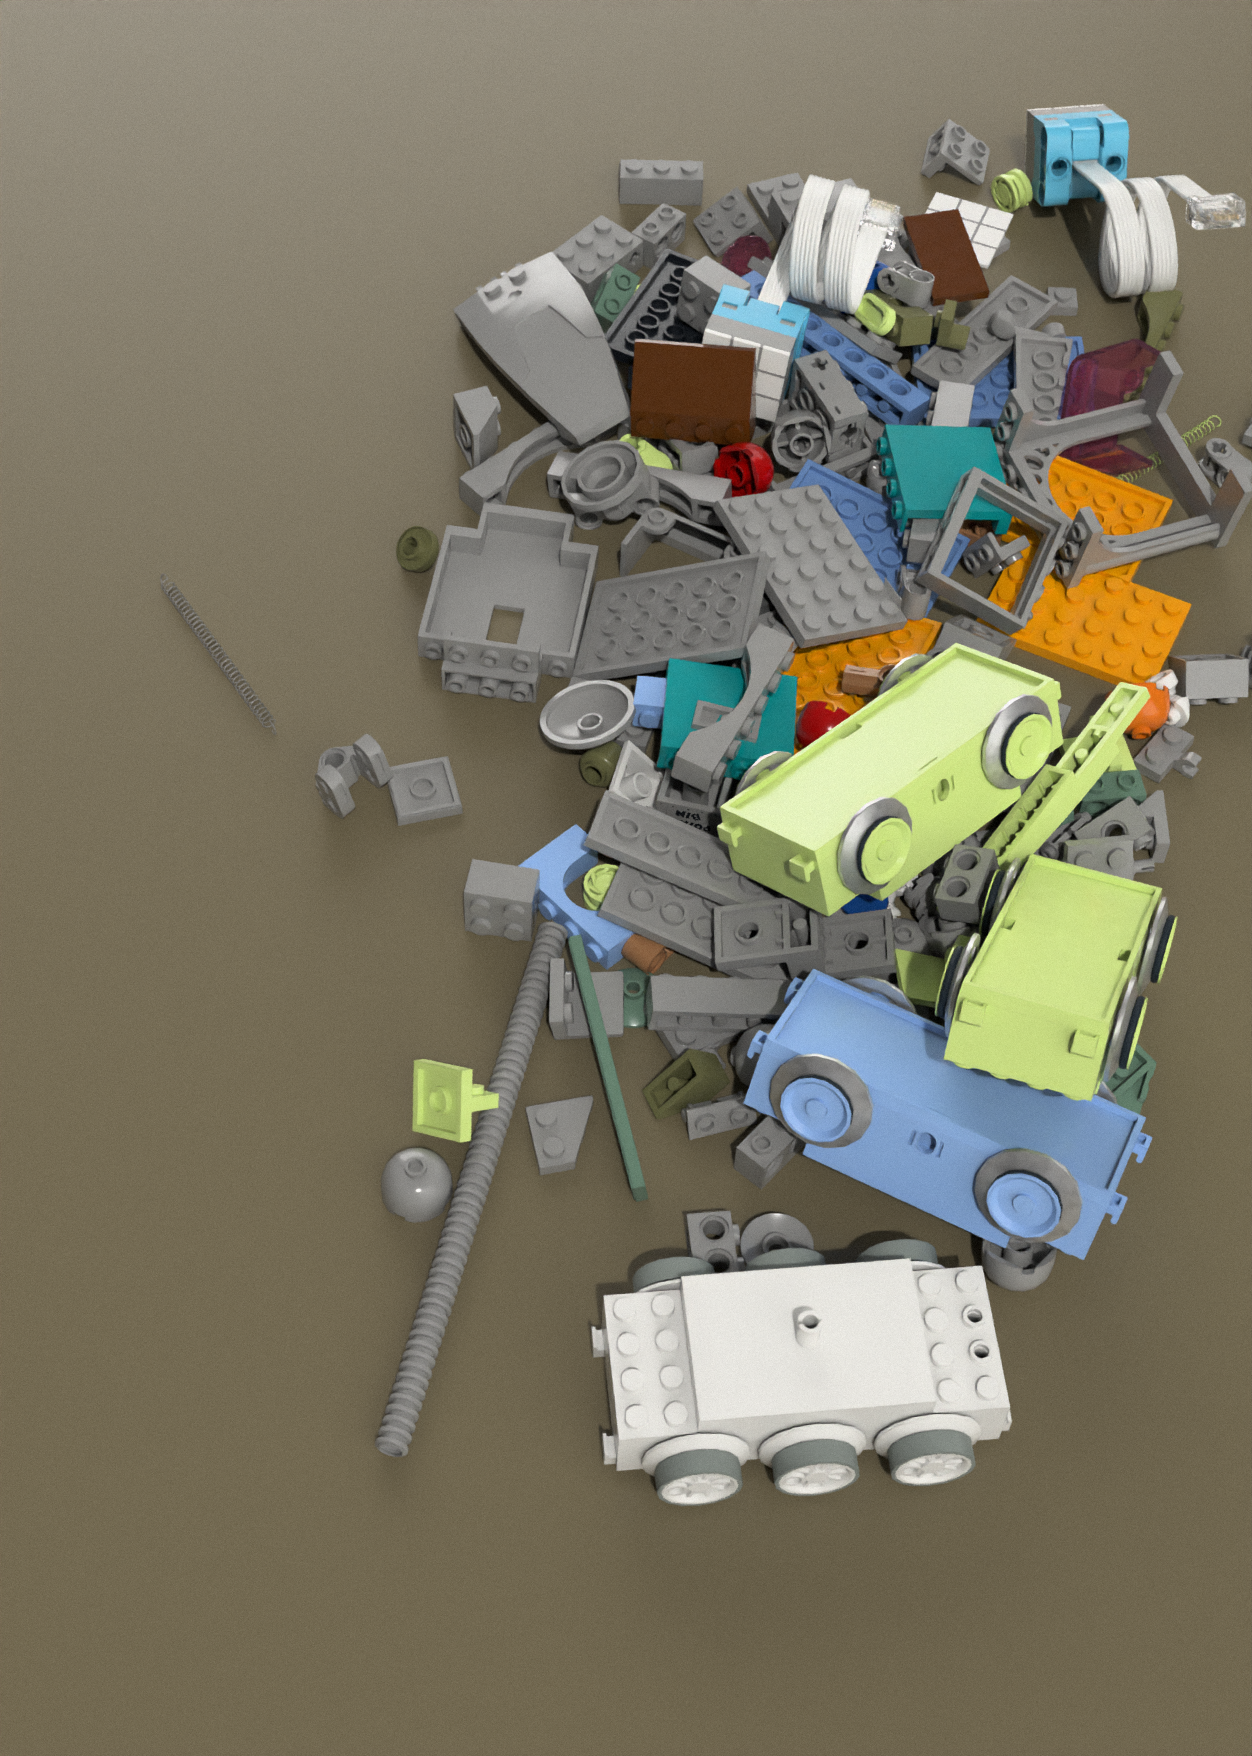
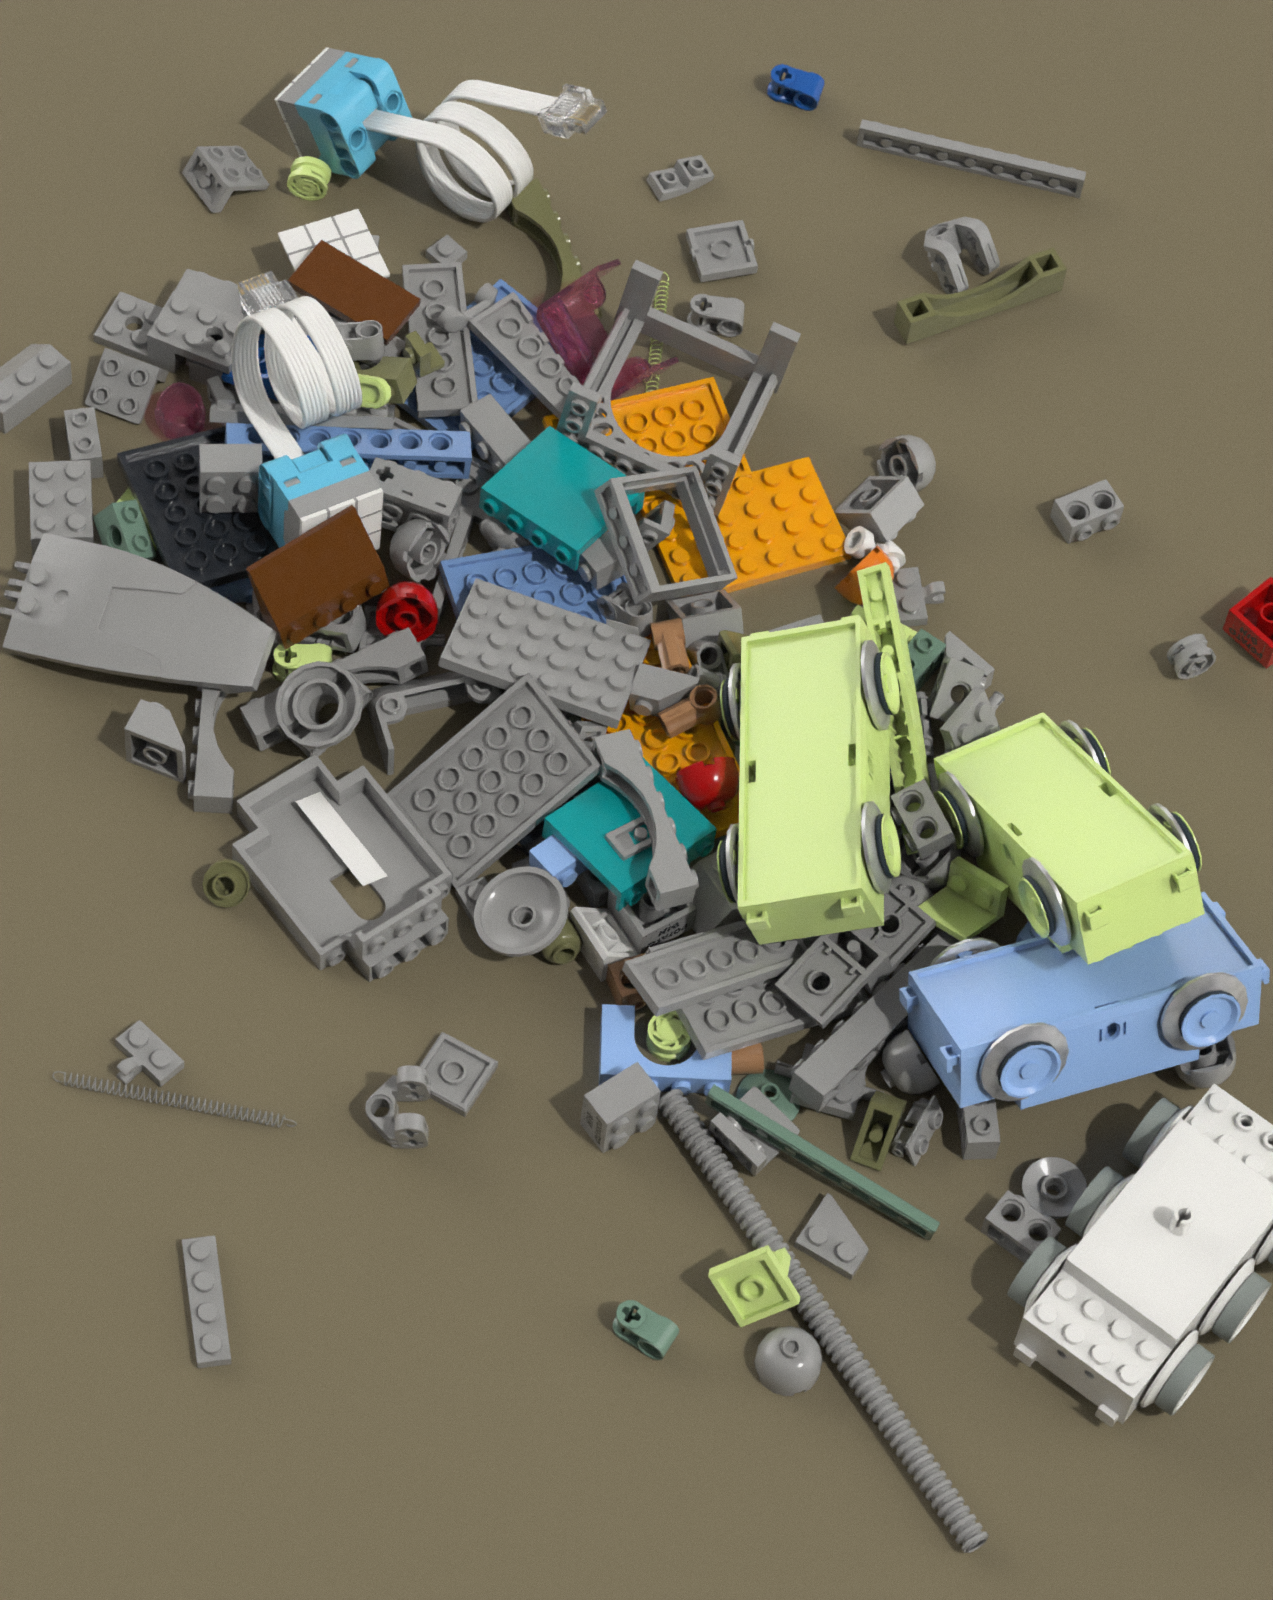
camera: 50 degrees left, 5 degrees up
(74, 790) = (206, 1301): none -> light grey plate
(235, 612) = (146, 1054): none -> light grey plate
(337, 1068) = (646, 1330): none -> sand green piece
(532, 585) = (341, 838): none -> white sticker
(867, 648) = (659, 689): none -> light grey slope
(918, 629) = (669, 640): none -> medium nougat piece

